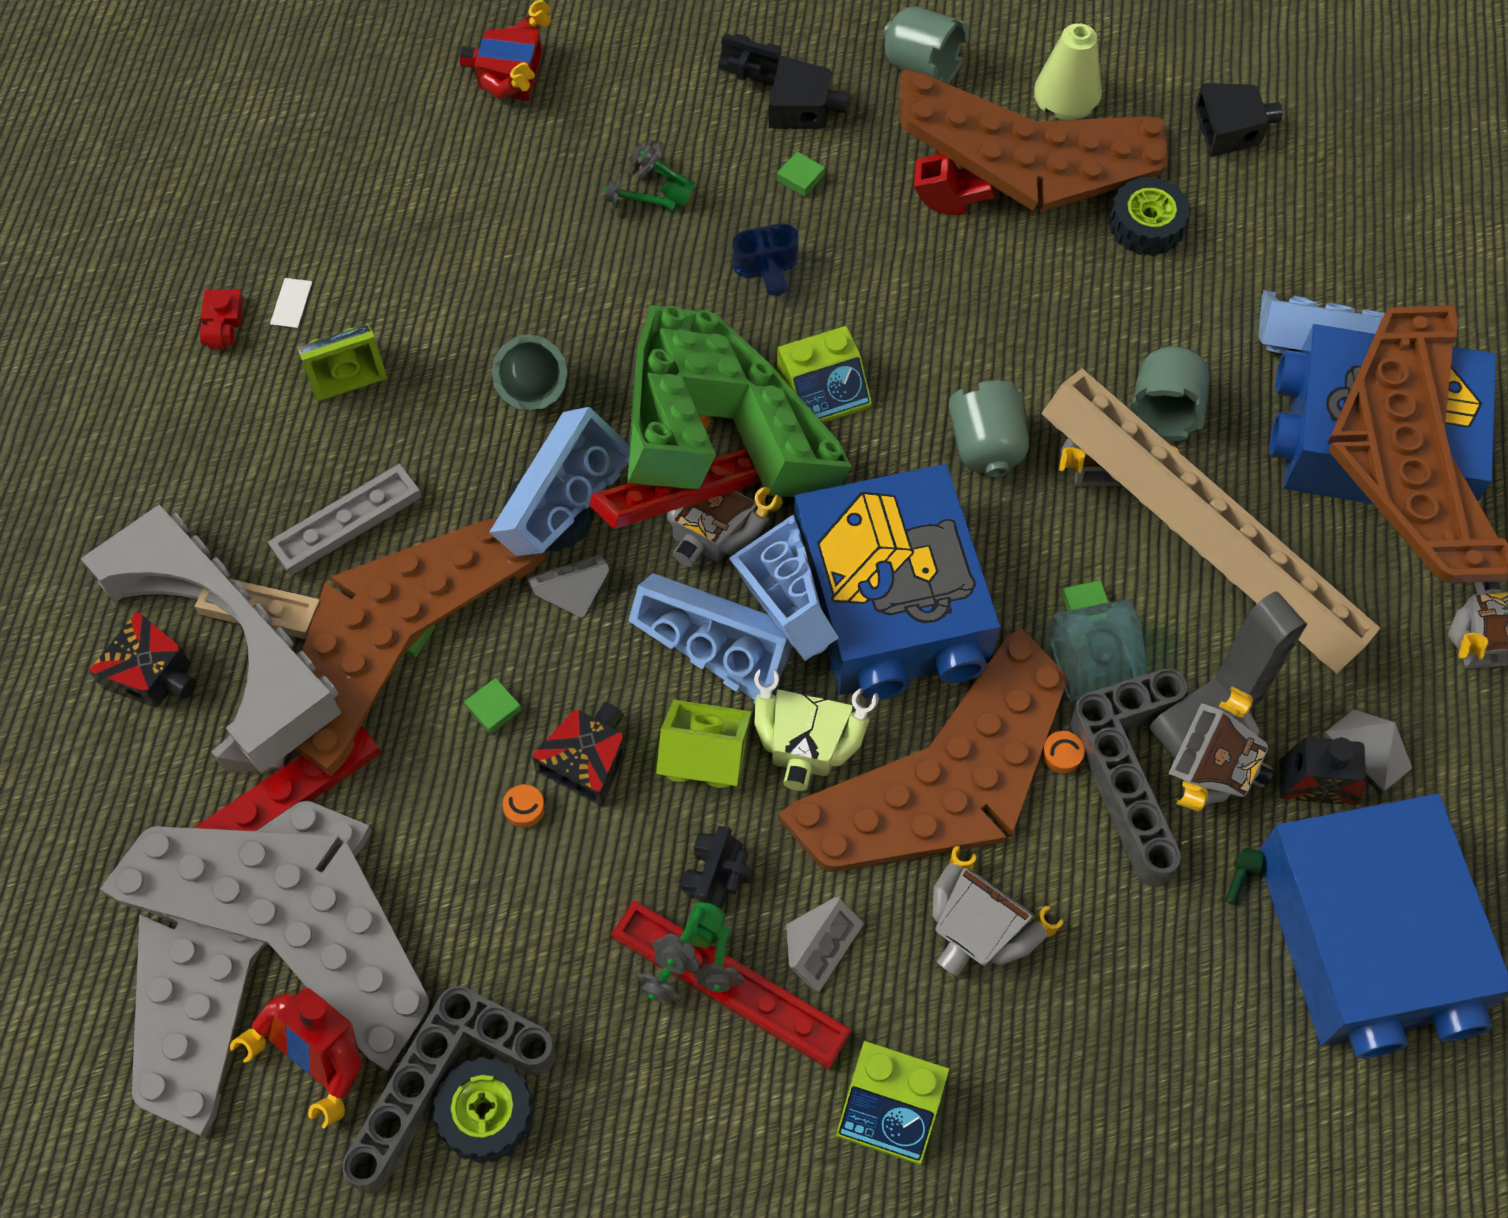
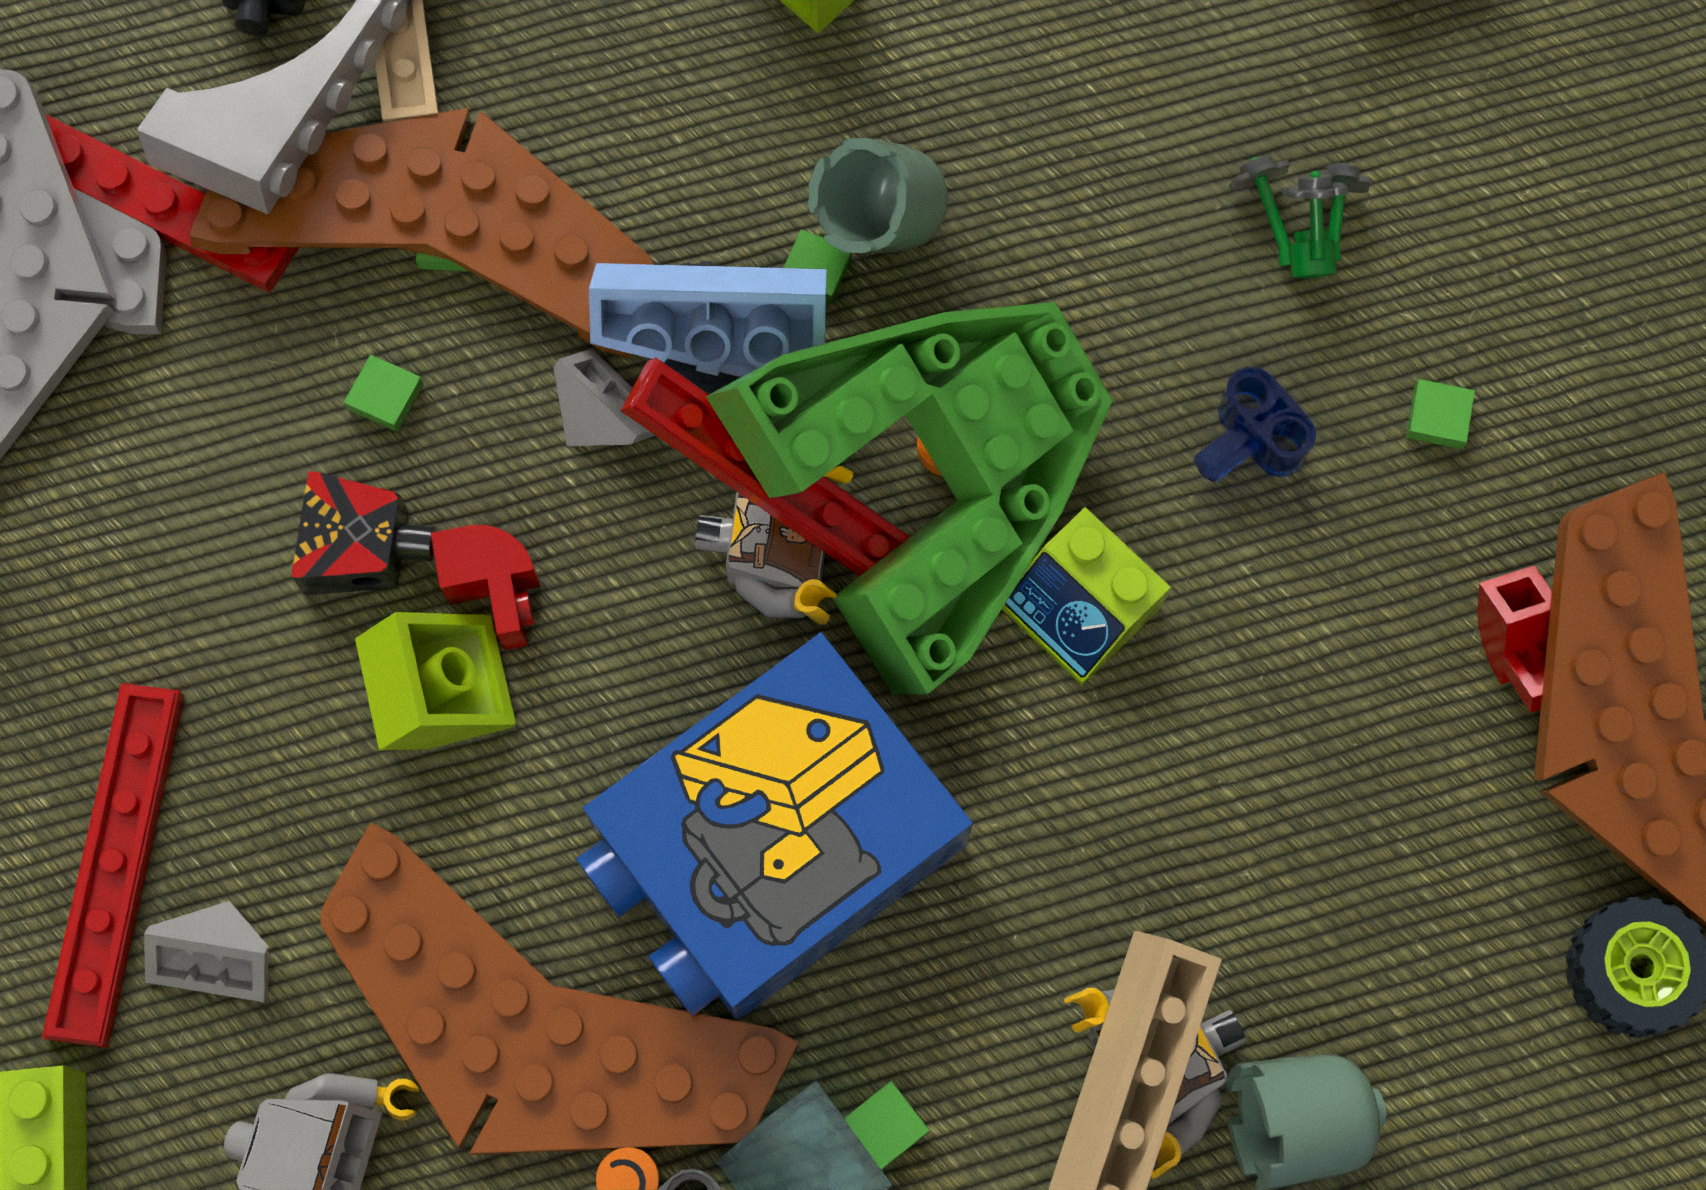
camera: 65 degrees right, 10 degrees up
(344, 519) = (571, 86): light grey plate -> none
(523, 806) = (259, 496): orange tile -> none
(536, 432) = (815, 253): none -> bright green tile
(648, 677) = (488, 563): none -> red brick
(678, 955) = (152, 791): plant -> none
(712, 632) = (599, 623): light blue wedge -> none
(722, 869) = (256, 781): black hips -> none
(749, 58) = (1606, 251): black hips -> none
(782, 582) = (664, 684): light blue wedge -> none
(803, 96) = (1580, 355): black torso -> none
(808, 731) = (501, 807): yellowish green torso -> none
(990, 427) = (1098, 870): sand green cylinder -> none

